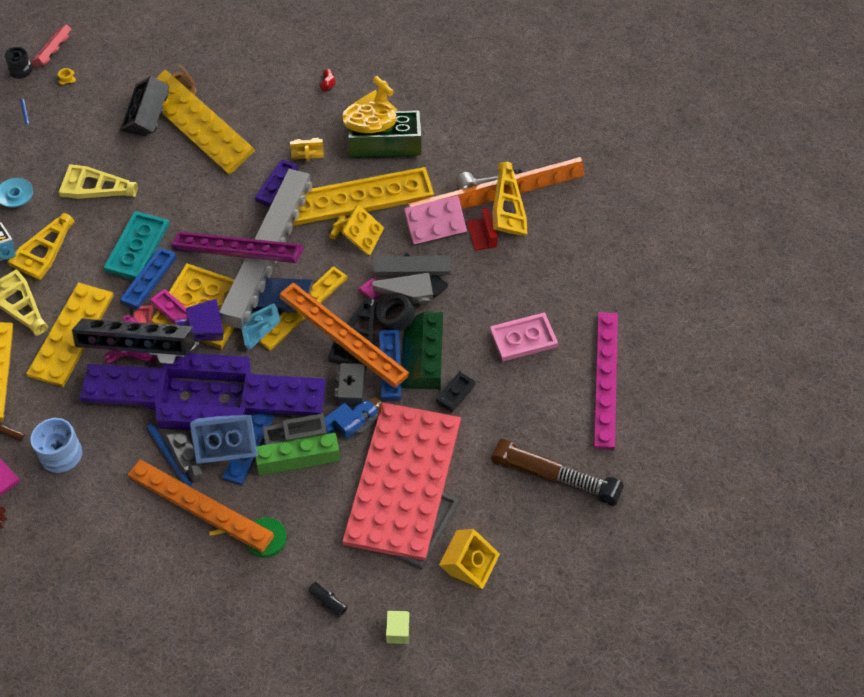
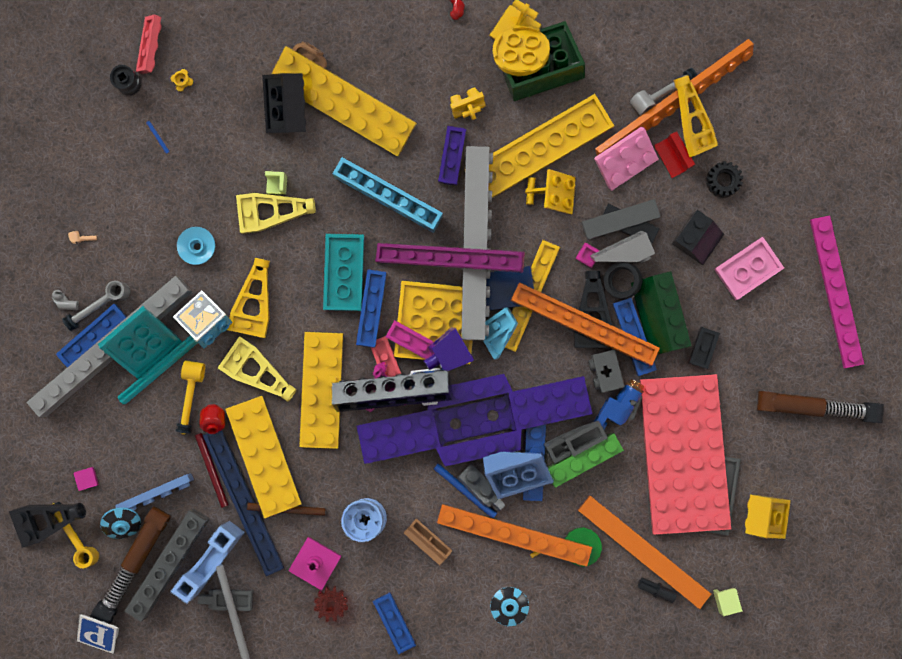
camera: 15 degrees left, 30 degrees up
(42, 556) = (394, 623): none -> blue tile
(110, 488) = (427, 541): none -> medium nougat piece
(111, 163) = (276, 182): none -> yellowish green panel
(168, 583) = (506, 597): none -> dish
(204, 195) = (387, 195): none -> medium azure brick
(329, 561) = (644, 552): none -> orange tile
(482, 297) = (698, 237): none -> black slope
(523, 251) = (734, 174): none -> black tyre

